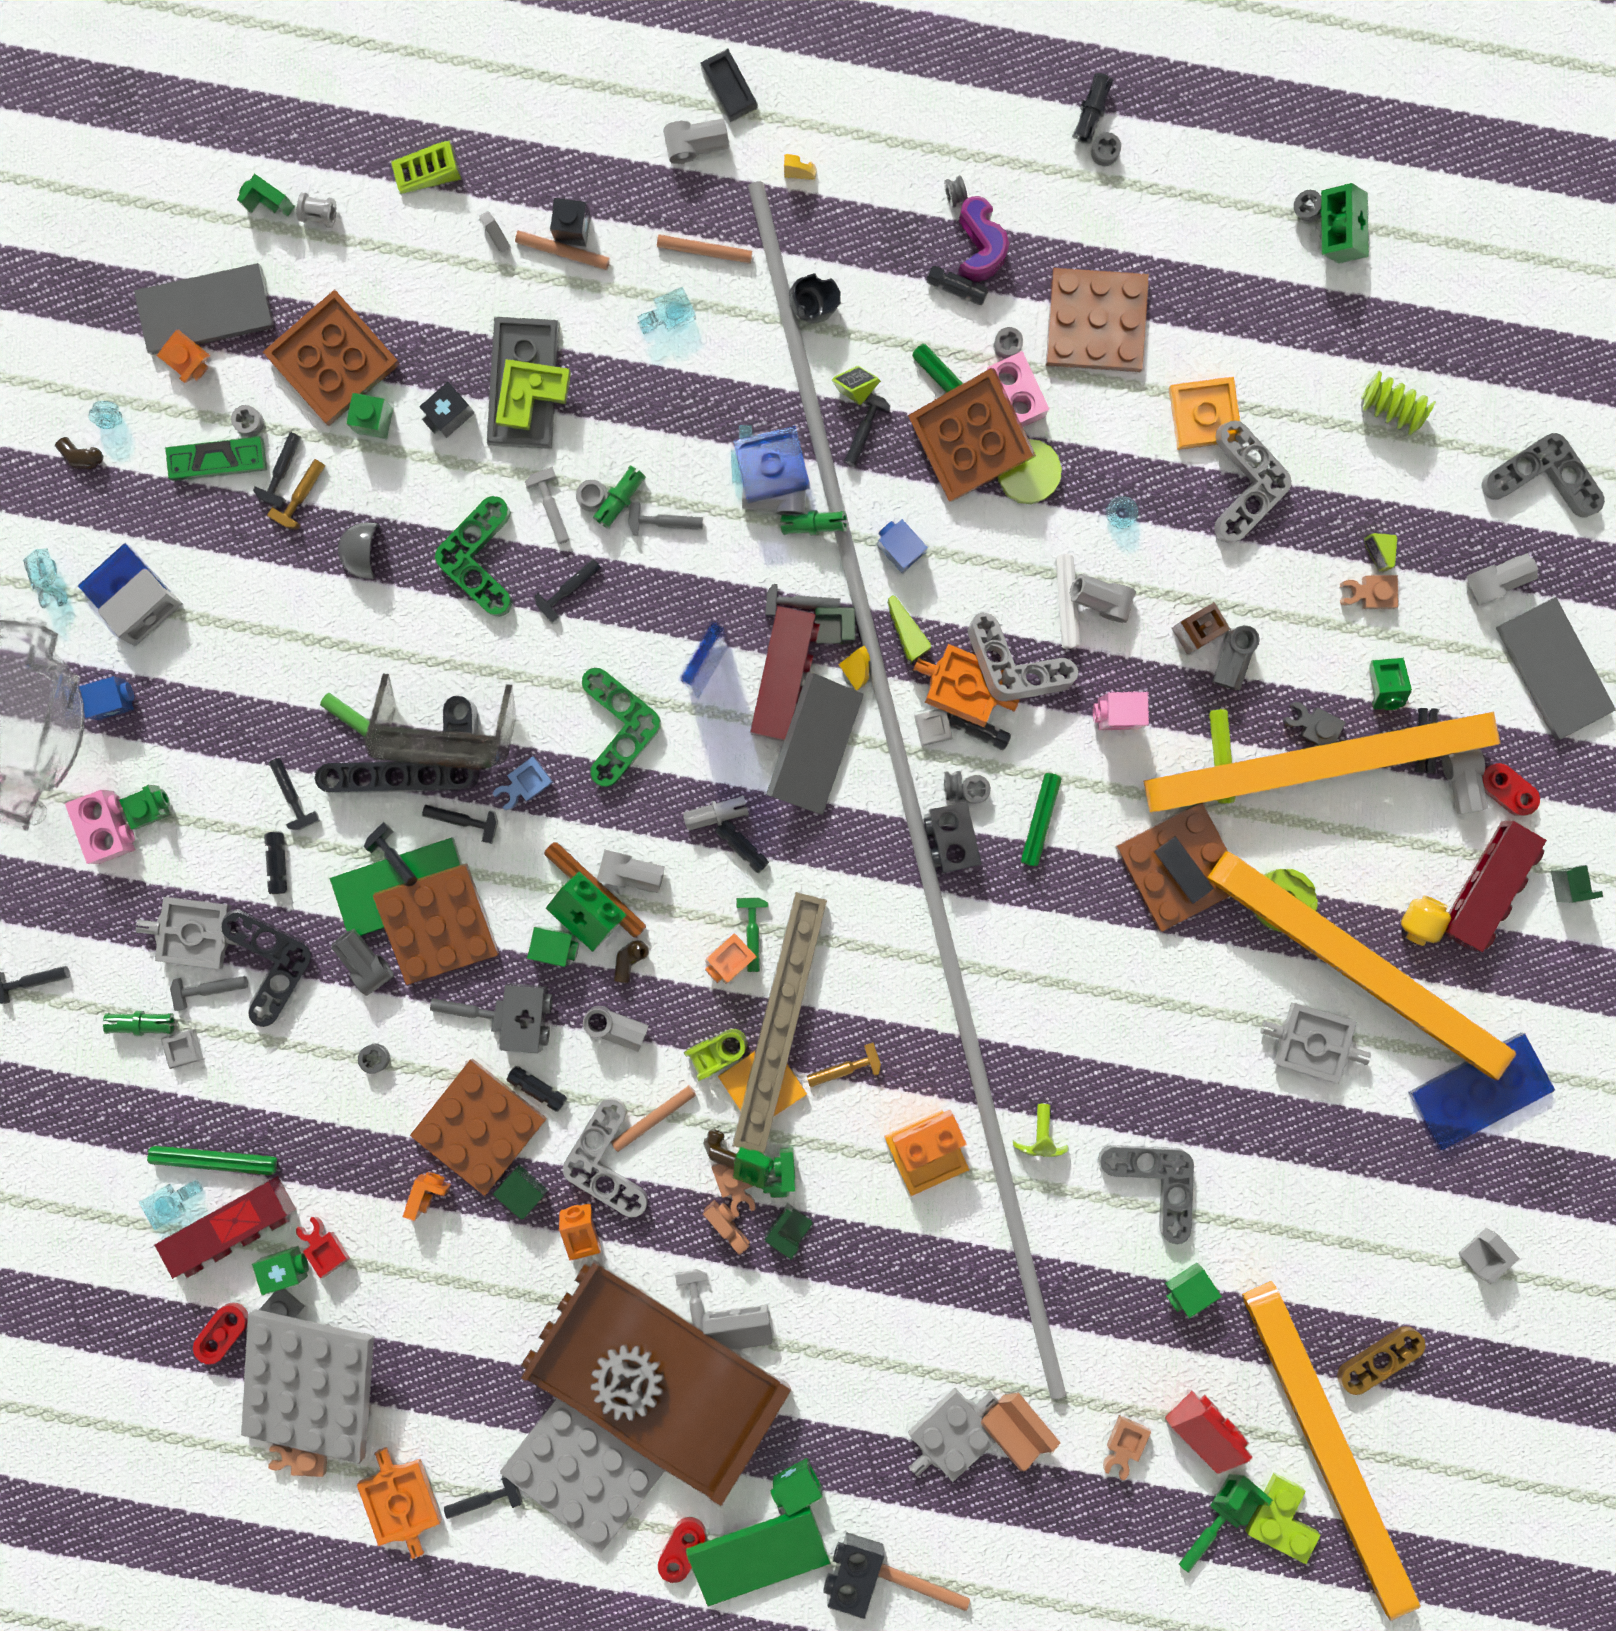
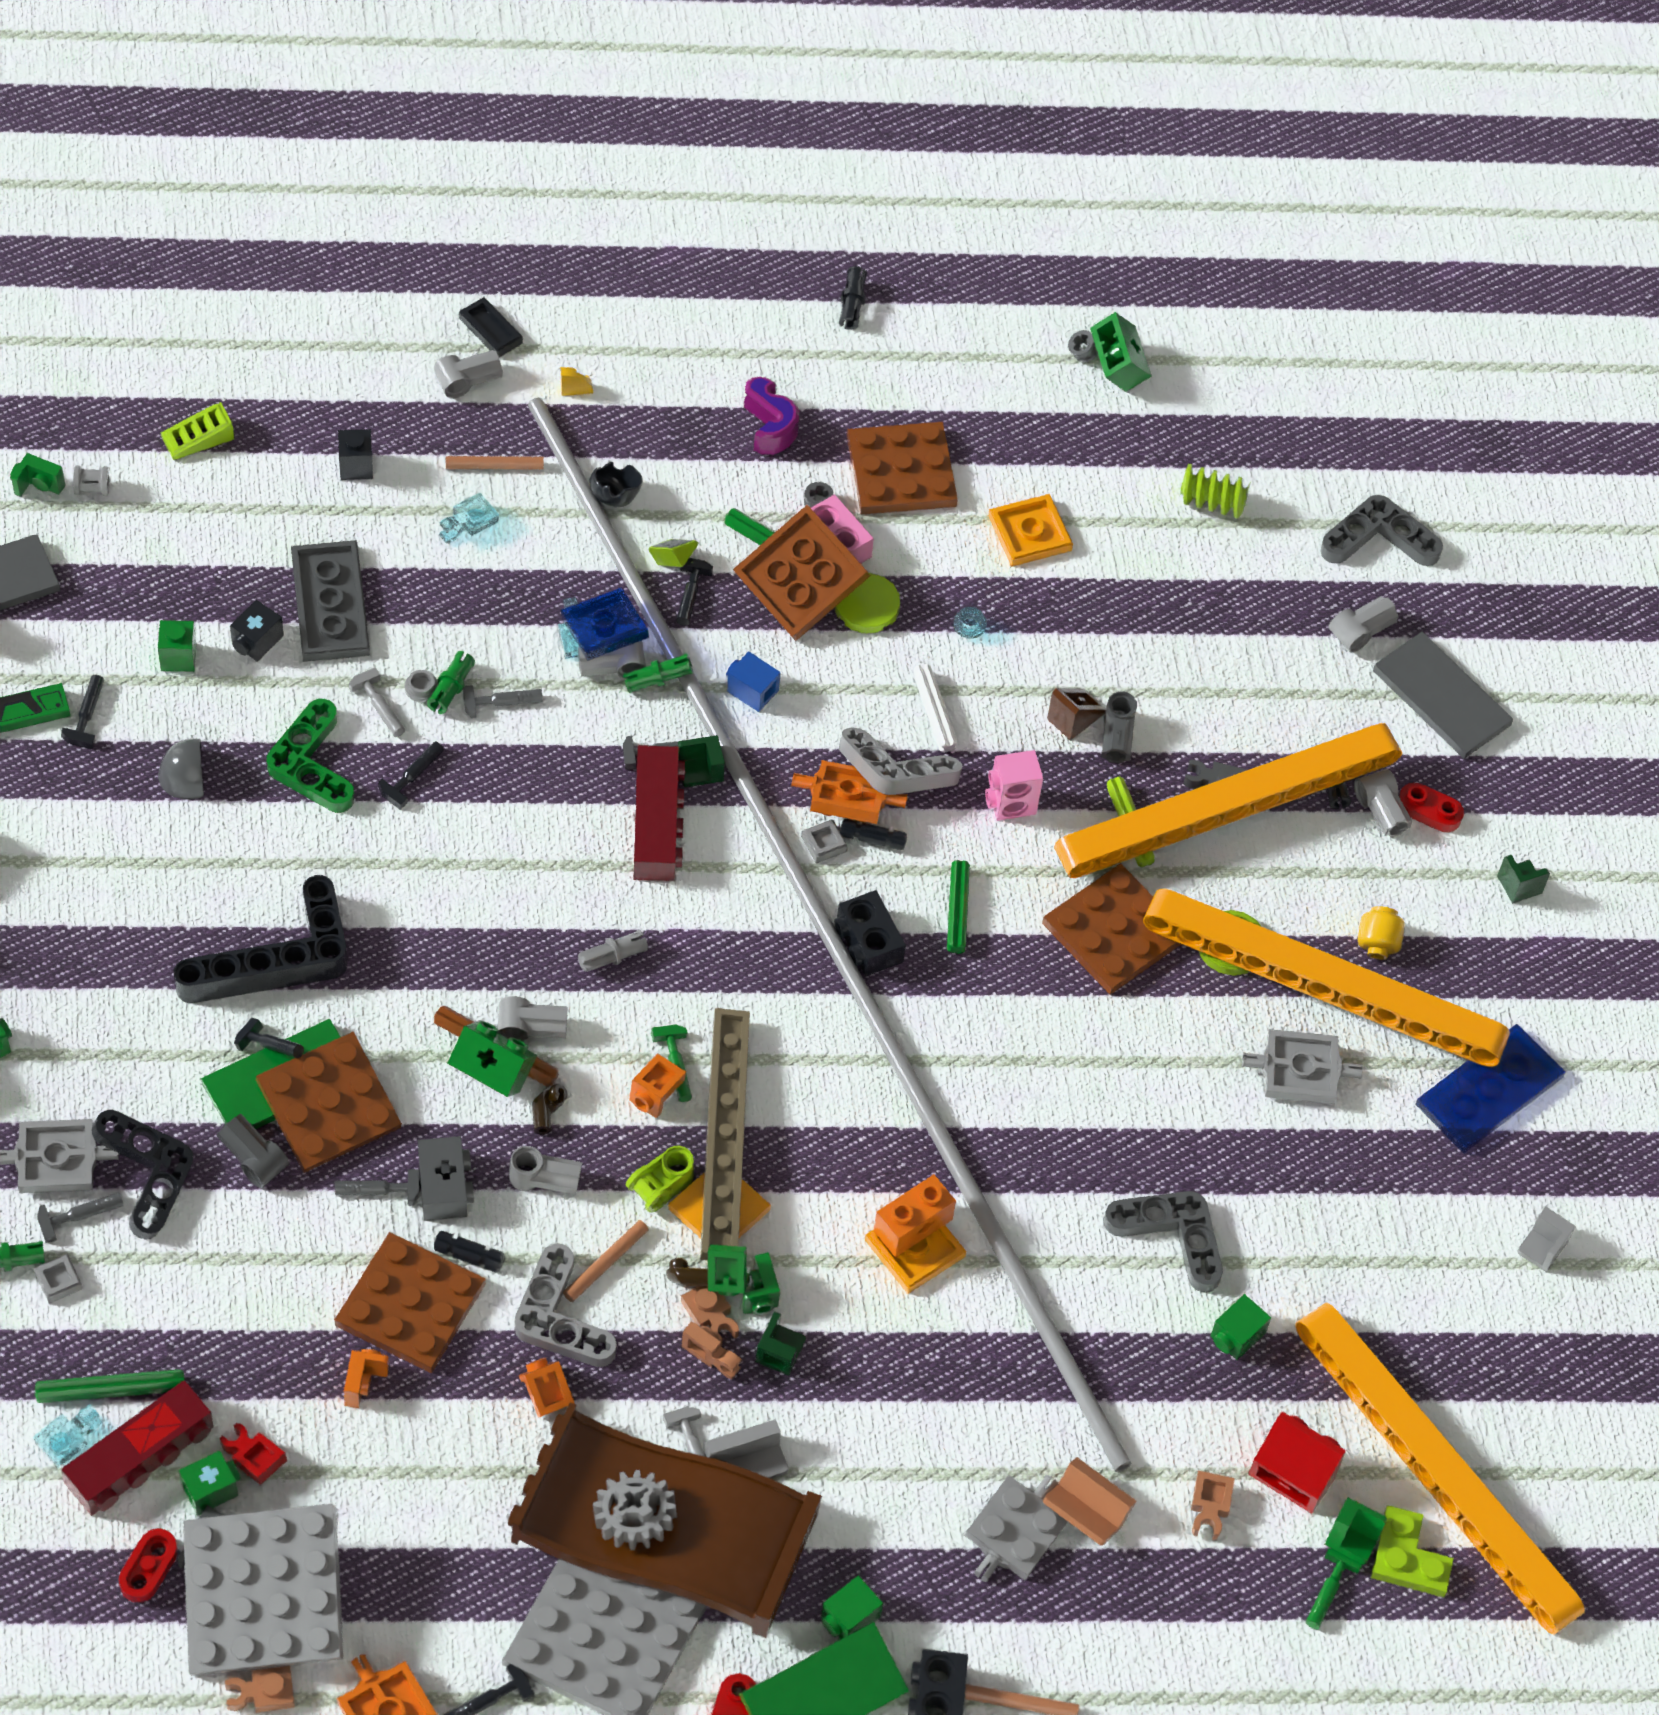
camera: 20 degrees left, 30 degrees down
(240, 412) = (41, 663): light grey bush -> none
(275, 862) = (138, 1075): black axle -> none
(292, 797) = (159, 1031): black piece -> none
(298, 496) = (99, 755): pearl gold piece -> none
(331, 357) = (124, 603): dark orange plate -> none
(345, 713) = (198, 924): bright green piece -> none
(385, 1058) = (271, 1244): dark grey bush -> none
(434, 746) = (307, 909): clear smoke windscreen -> none
(464, 820) = (339, 1004): black piece -> none
(494, 231) = (277, 469): light grey tile -> none
(520, 1192) = (470, 1349): dark green panel -> none
(524, 383) = (336, 592): lime plate -> none
(527, 781) = (401, 952): medium blue plate -> none
(553, 946) = (461, 1103): green brick -> none
(562, 250) = (349, 483): nougat piece -> none
(629, 718) = (501, 881): green beam -> none
(705, 660) = (576, 789): clear blue tile -> none
(742, 846) = (647, 980): black axle -> none
(815, 743) = (704, 867): dark grey tile -> none
(846, 1068) = (833, 1162): pearl gold piece -> none
(857, 667) = (732, 795): yellow tile -> none
(910, 635) = (776, 753): lime slope -> none
(953, 785) = (857, 884): dark grey bush -> none
(955, 191) = (735, 379): dark grey bush -> none
(957, 285) = (755, 457): black axle -> none
(974, 779) = (882, 879): bush -> none
(1044, 1144) = (1040, 1204): lime plant -> none
(1106, 139) = (876, 336): dark grey bush -> none
(1111, 599) = (978, 695): light grey piece -> none
(1183, 870) = (1117, 920): black piece -> none
(1260, 484) = (1101, 580): light grey beam -> none
(1375, 592) = (1242, 654): nougat plate -> none
(1382, 550) = (1237, 615): lime slope -> none
(1390, 683) = (1282, 730): green bracket -> none
(1395, 1339) = (1462, 1383): pearl gold beam -> none
(1493, 885) = (1439, 892): dark red brick -> none

